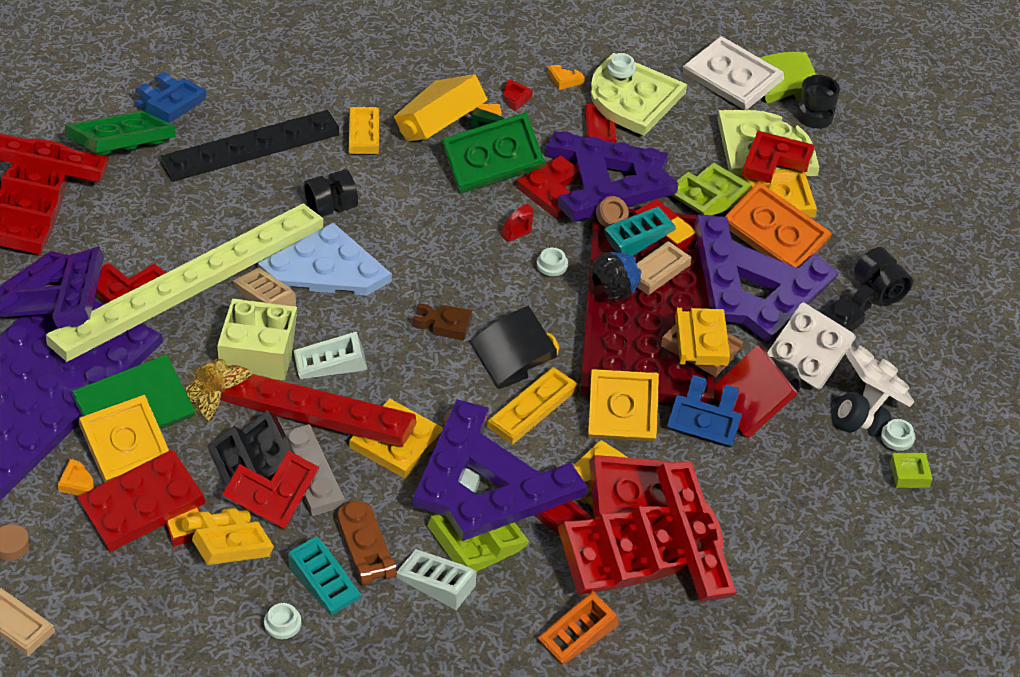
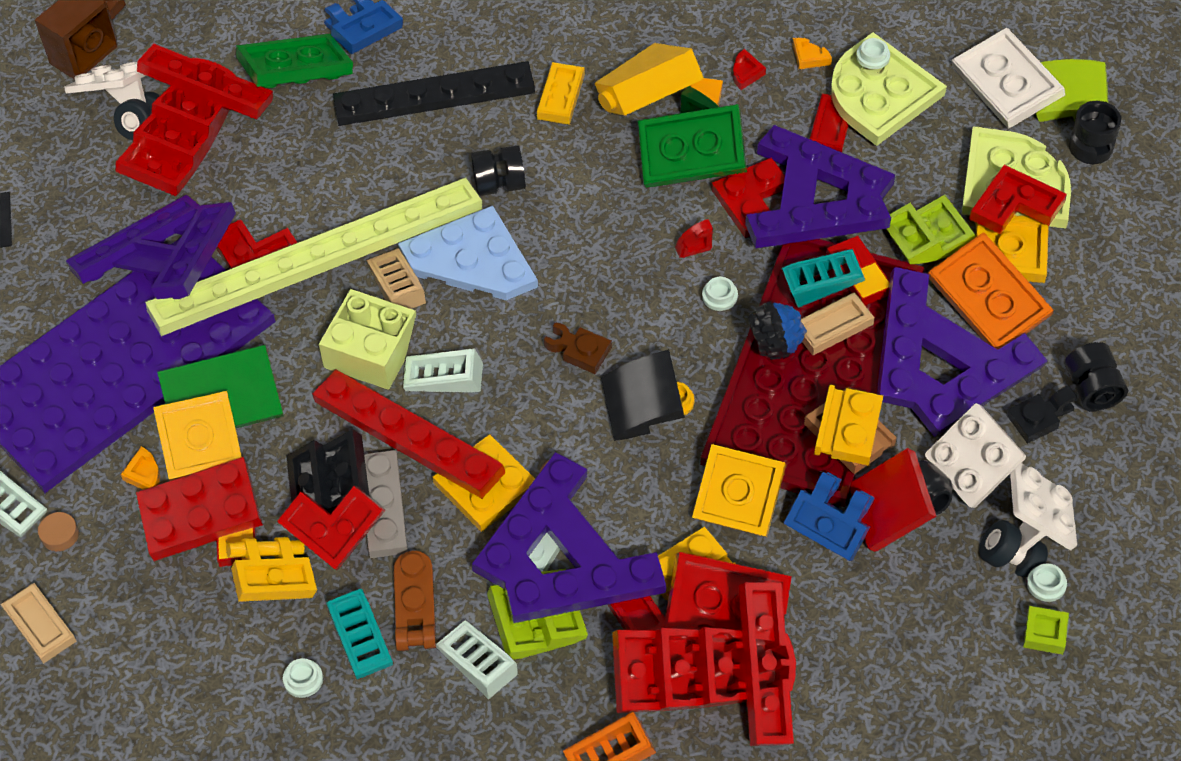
camera: 20 degrees right, 10 degrees up
(211, 381) = (306, 382): clear yellow animal -> none
(532, 405) = (644, 468): yellow tile -> none
(611, 211) = (800, 244): medium nougat tile -> none

